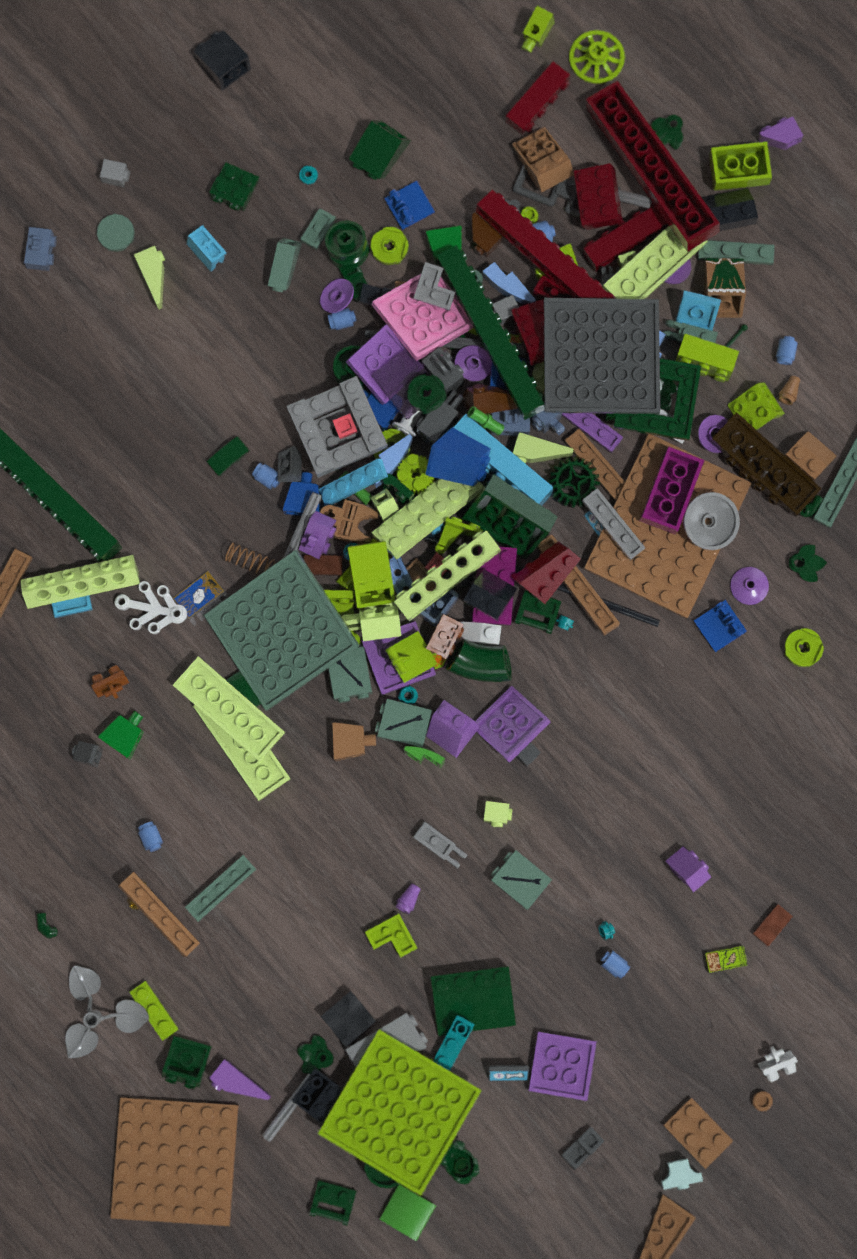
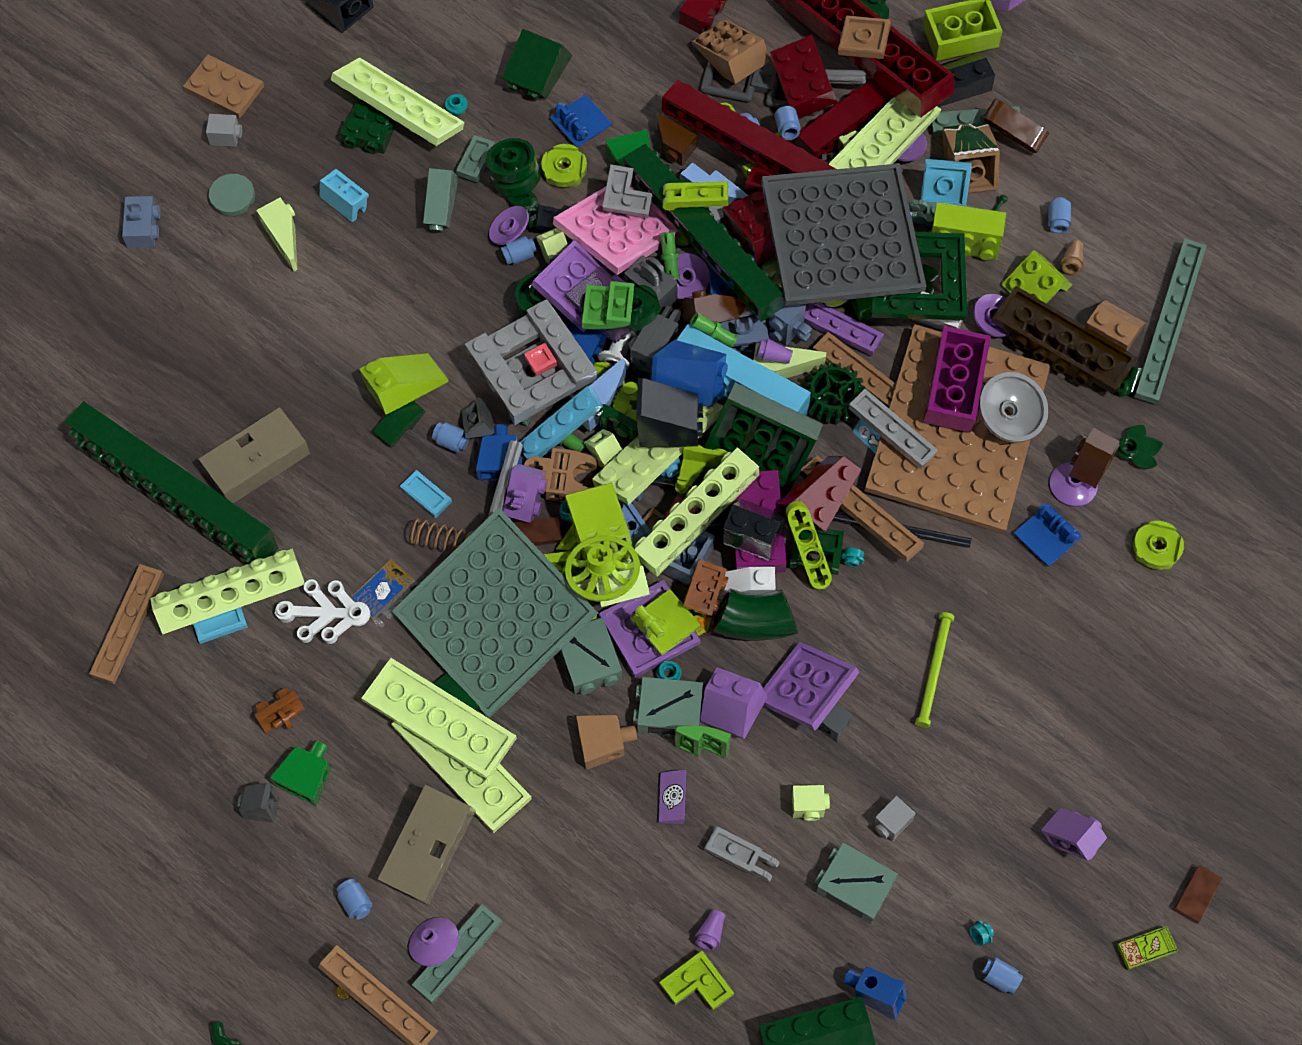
camera: 10 degrees left, 15 degrees down
(111, 470) = (254, 456): none -> dark tan brick
(118, 129) = (223, 86): none -> medium nougat plate
(208, 805) = (427, 844): none -> dark tan brick
(209, 882) = (438, 948): none -> medium lavender dish
(235, 421) = (401, 379): none -> lime slope
(241, 520) = (425, 494): none -> medium azure tile
(260, 167) = (397, 101): none -> yellowish green plate
(367, 611) = (601, 563): none -> lime wheel
(370, 319) = (552, 243): none -> yellowish green brick
(396, 793) = (672, 797): none -> medium lavender slope
(404, 391) = (608, 306): none -> bright green slope
(437, 493) = (667, 415): none -> black slope
(461, 346) = (669, 254): none -> bright green pin
(489, 303) = (695, 194): none -> lime plate
(527, 614) = (808, 545): none -> lime beam
(527, 967) = (886, 993): none -> blue torso
(529, 444) = (773, 352): none -> medium lavender cone
(557, 836) = (893, 819): none -> light grey brick
(577, 237) = (787, 122): none -> medium blue brick
(611, 722) = (923, 719): none -> lime bar
(653, 173) = (864, 37): none -> medium nougat tile
(766, 265) = (1015, 126): none -> reddish brown beam
(767, 570) = (1094, 457): none -> reddish brown brick

